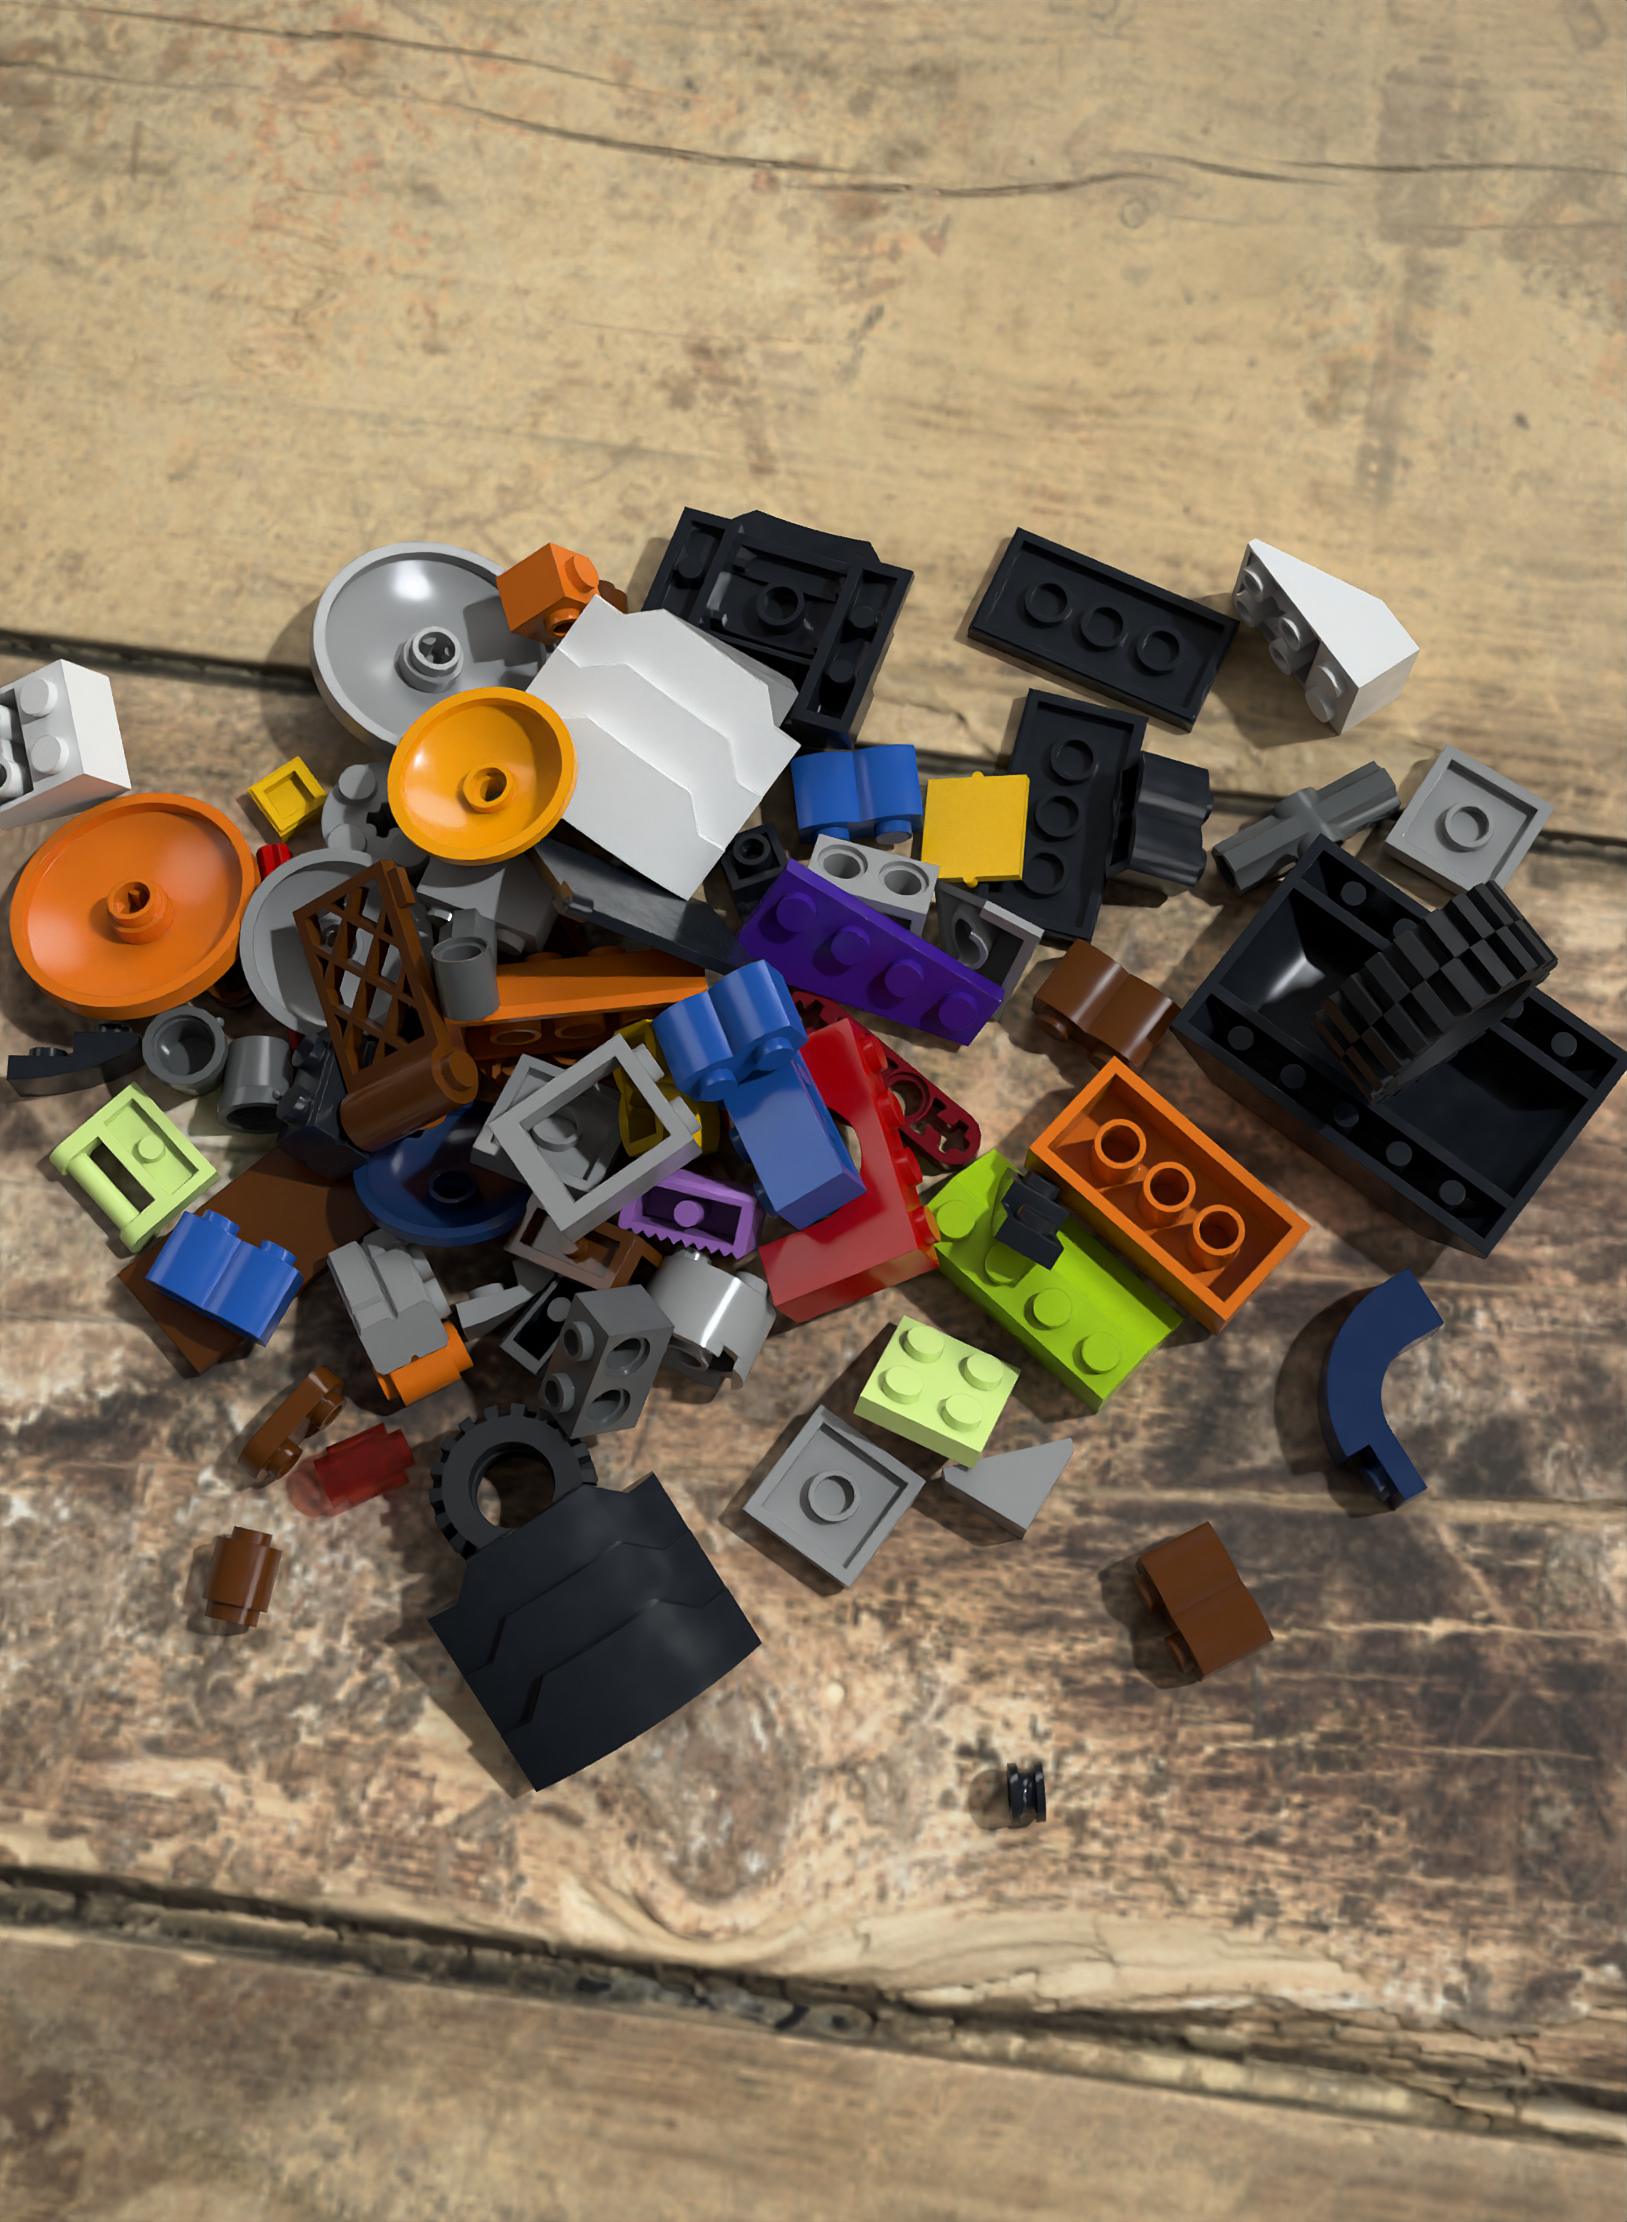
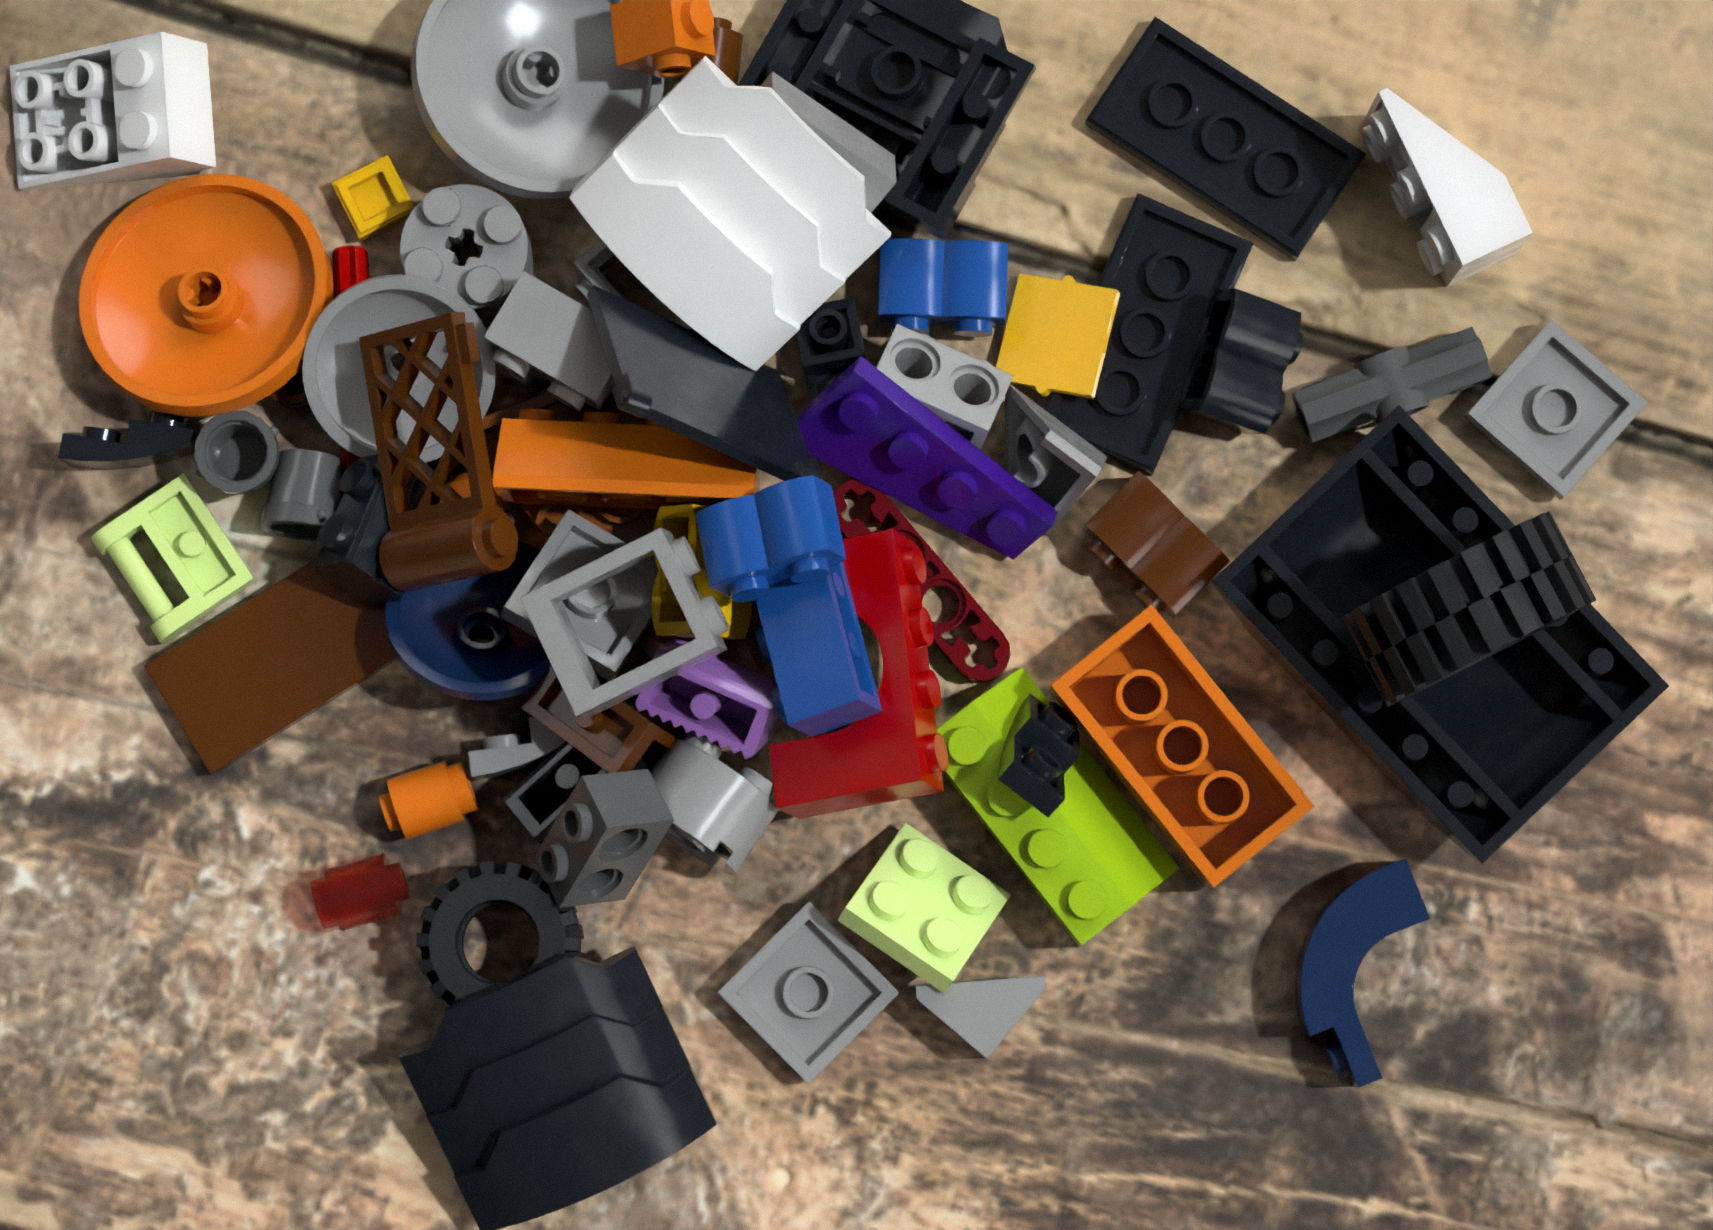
camera: 15 degrees right, 10 degrees up
(226, 1277) = (249, 689): blue brick -> none
(241, 1576) = (228, 982): reddish brown brick -> none
(311, 1405) = (276, 860): reddish brown plate -> none
(388, 1299) = (404, 738): light grey brick -> none
(464, 754) = (542, 207): light orange dish -> none
(467, 966) = (522, 428): dark grey piece -> none
(1202, 1602) = (1145, 1151): reddish brown brick -> none

